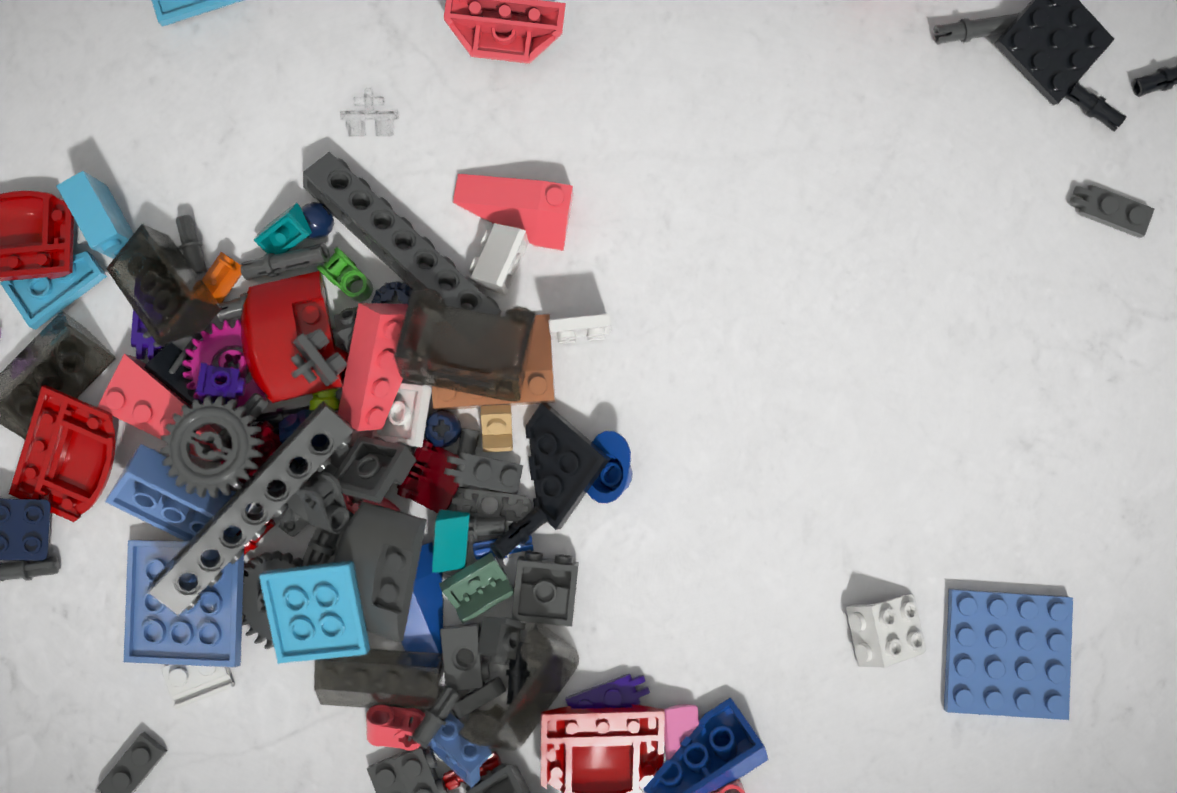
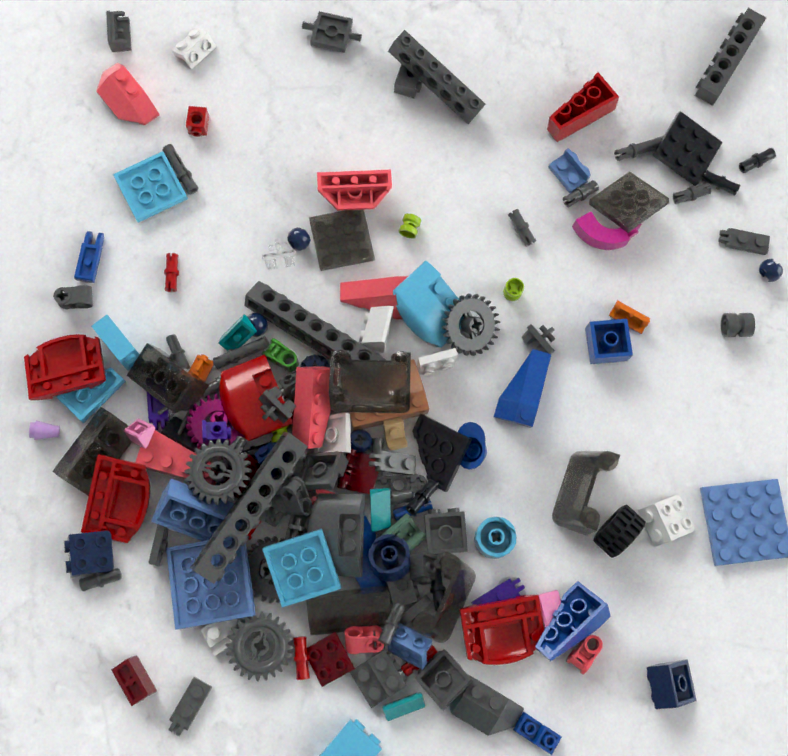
camera: 20 degrees left, 10 degrees down
(47, 131) = (76, 297): none -> dark grey piece
(54, 724) = (133, 680): none -> dark red hinge
(79, 71) = (89, 258): none -> blue hinge
(111, 361) = (140, 432): none -> bright pink slope
(116, 538) = (159, 545): none -> dark grey plate
(201, 115) = (171, 272): none -> red pin
(227, 737) = (253, 666): none -> dark grey gear
(300, 735) = (301, 658): none -> red pin
(340, 744) = (329, 659): none -> dark red hinge
(404, 93) = (298, 239): none -> dark blue piece
(435, 610) = (389, 569): none -> dark blue brick
(471, 104) = (341, 239): none -> clear smoke plate
(581, 99) = (410, 225): none -> lime wheel
(587, 236) = (422, 303): none -> medium azure slope
(614, 630) = (506, 537): none -> medium azure brick
(658, 291) = (484, 325): none -> gear
(704, 400) = (523, 394): none -> blue wedge
(727, 225) = (513, 285): none -> lime wheel
(742, 306) = (532, 334): none -> dark grey hips
(758, 130) = (522, 227): none -> dark grey pin
(758, 560) = (576, 488): none -> clear smoke windscreen
(807, 639) = (619, 531): none -> black tyre
(855, 49) = (570, 171): none -> medium blue bracket
(856, 339) = (608, 341): none -> blue brick
(864, 89) = (580, 193): none -> dark grey pin
(884, 169) = (599, 236): none -> dark pink arch
(898, 303) = (635, 319): none -> orange hinge
(938, 116) = (629, 201): none -> clear smoke plate
(1044, 117) = (691, 193): none -> dark grey pin
(1073, 346) = (740, 324): none -> dark grey wheel
(1142, 266) = (770, 270): none -> dark blue piece

